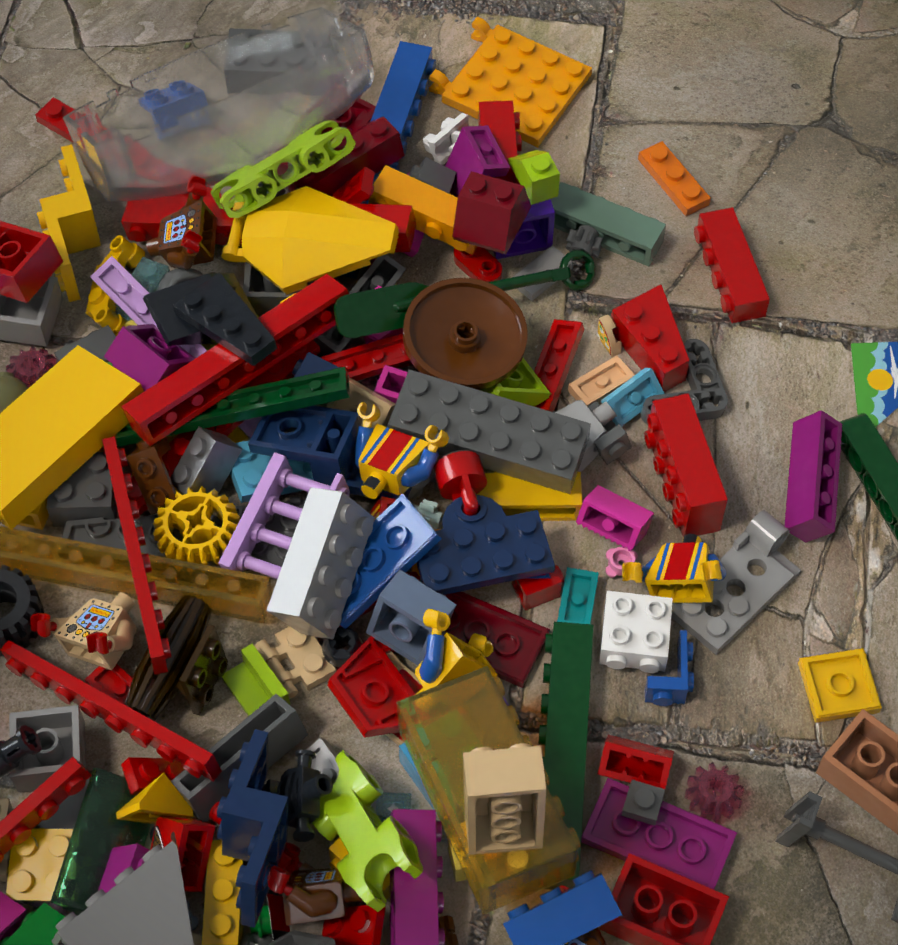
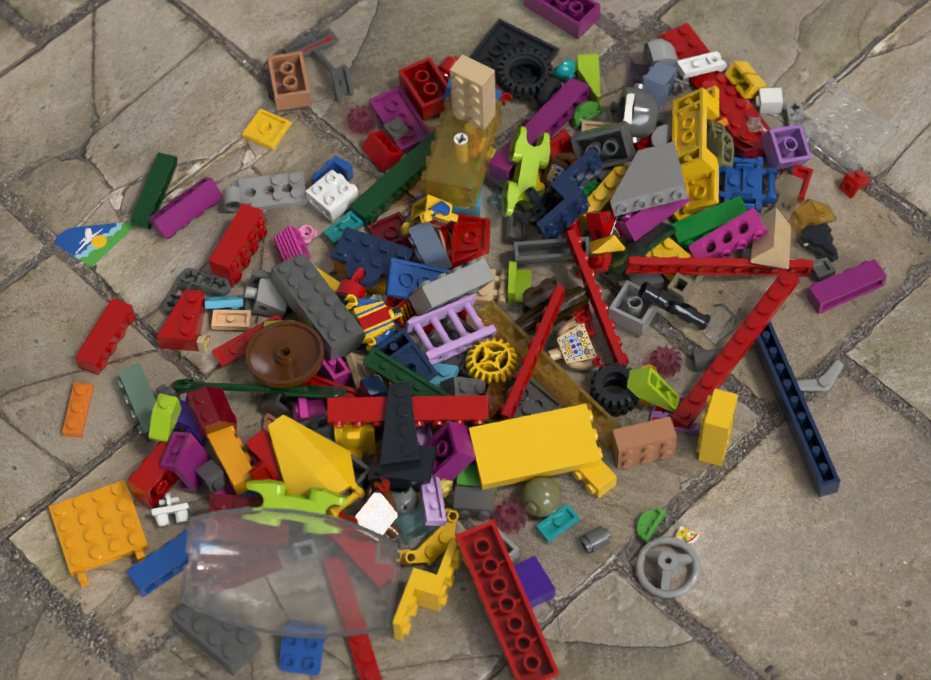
camera: 140 degrees left, 0 degrees up
(679, 571) = (287, 202): torso -> none

